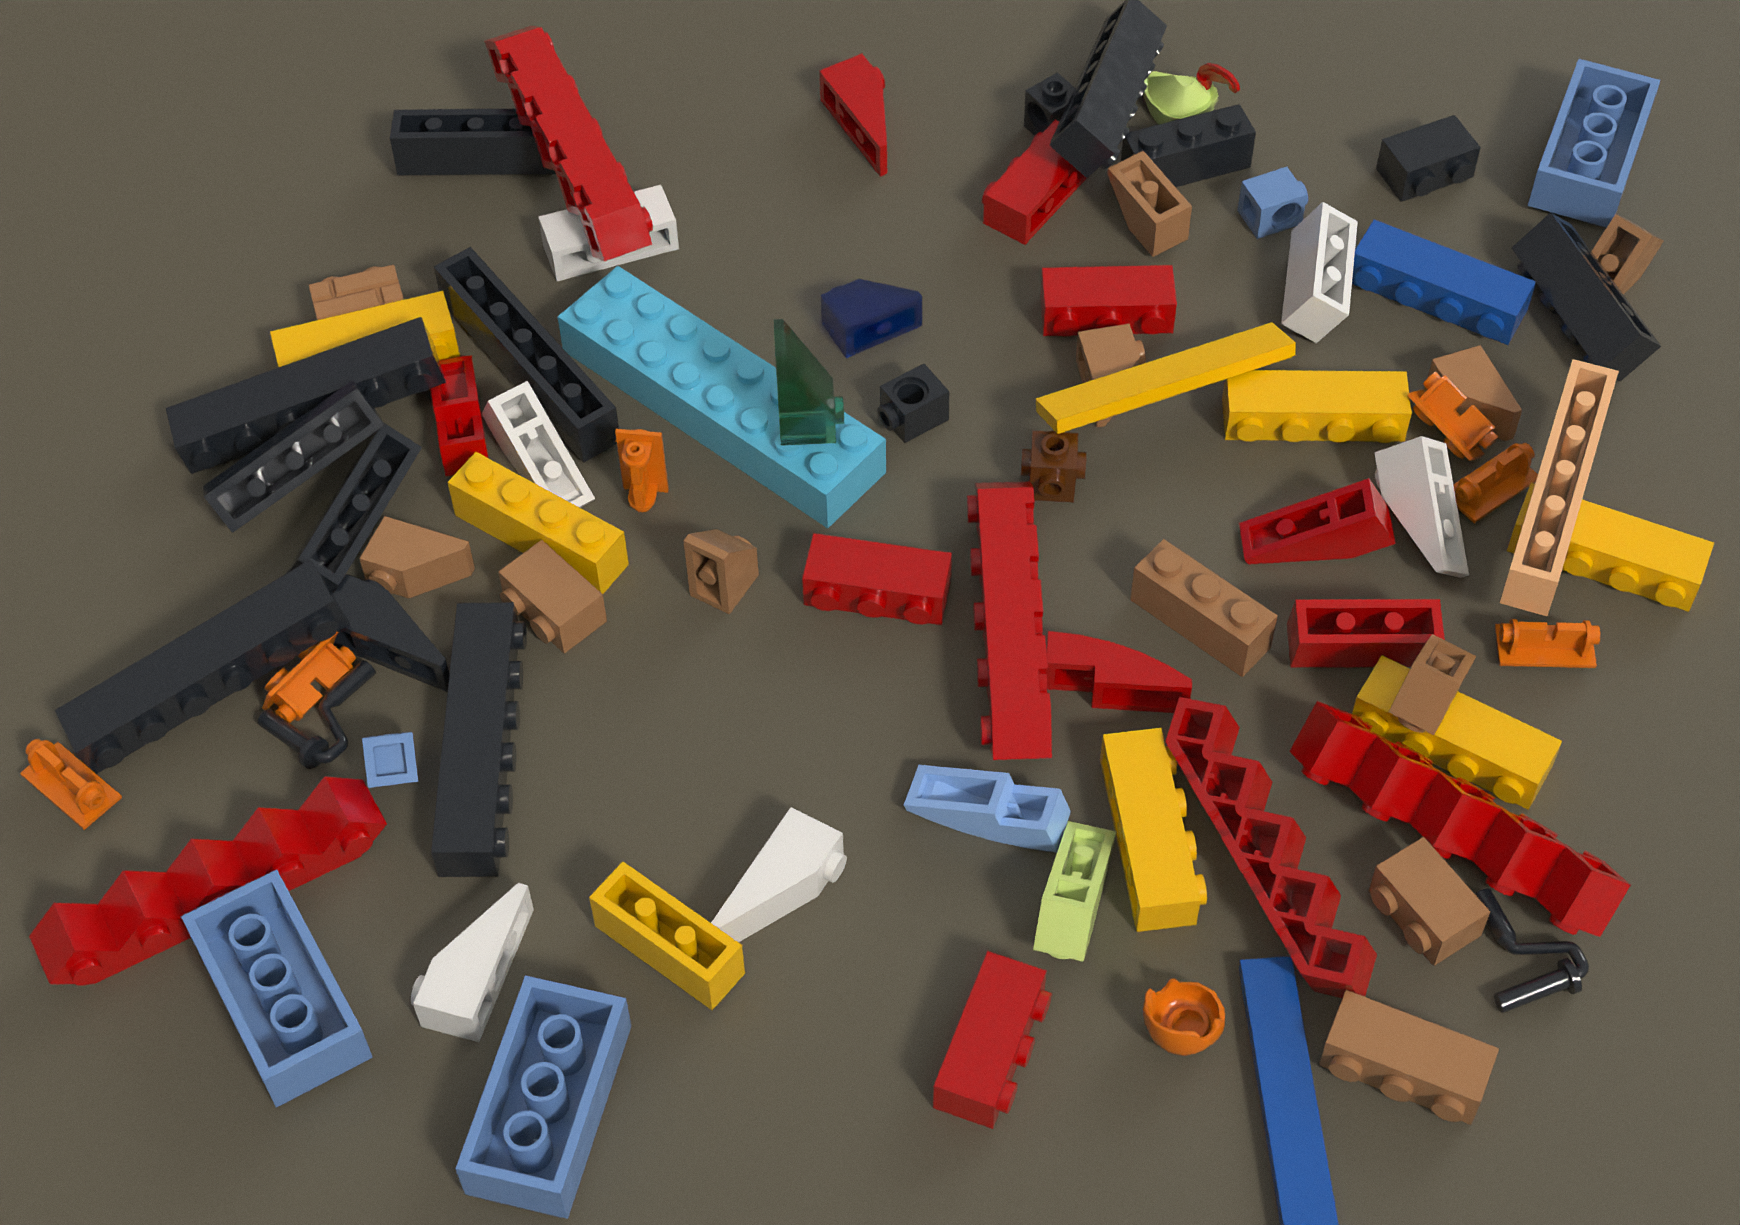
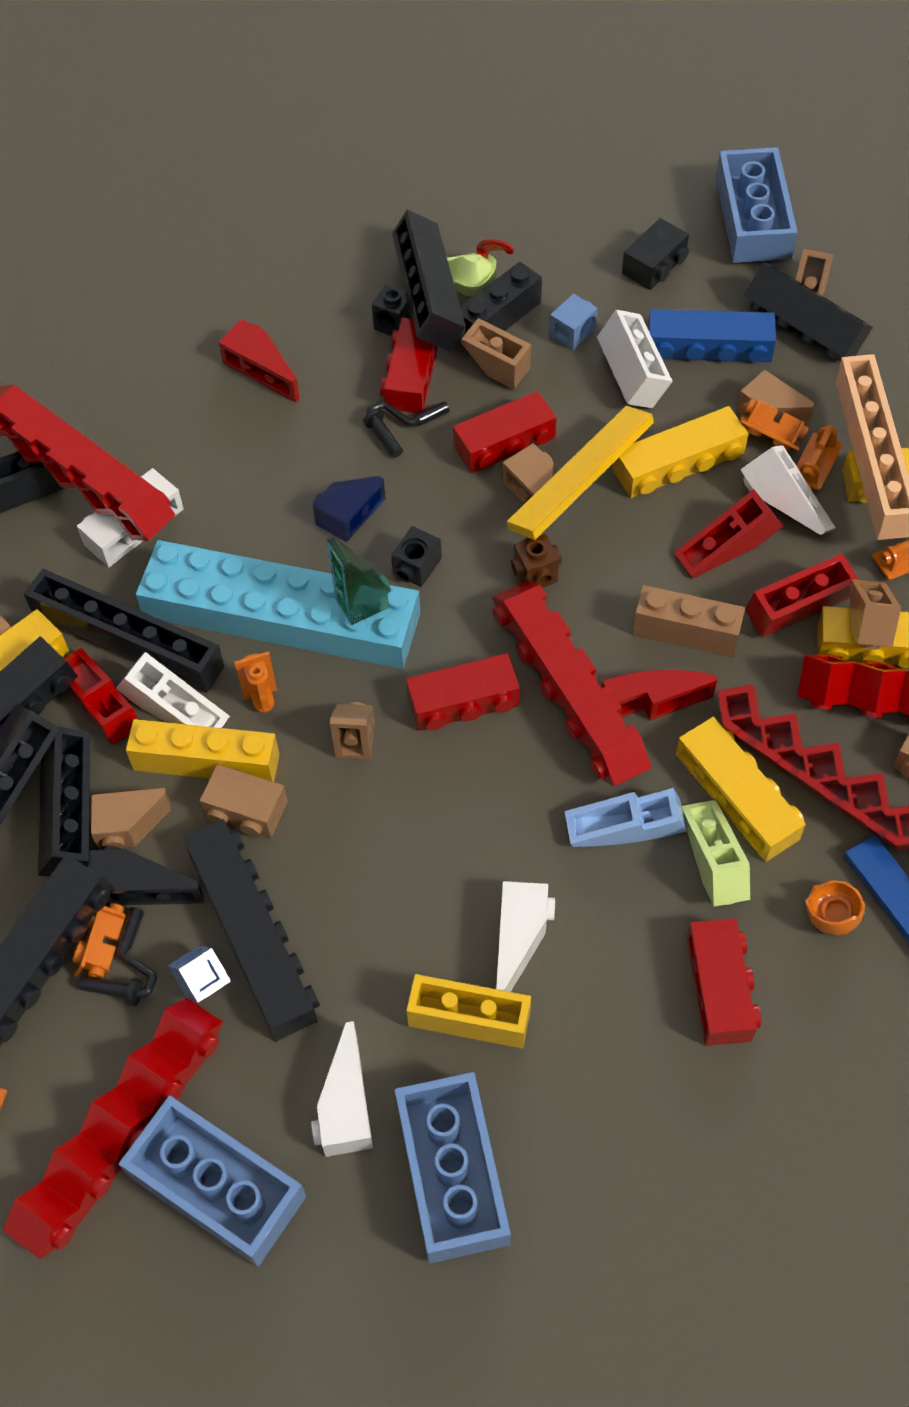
camera: 25 degrees left, 5 degrees up
(961, 226) = (375, 418): none -> black piece

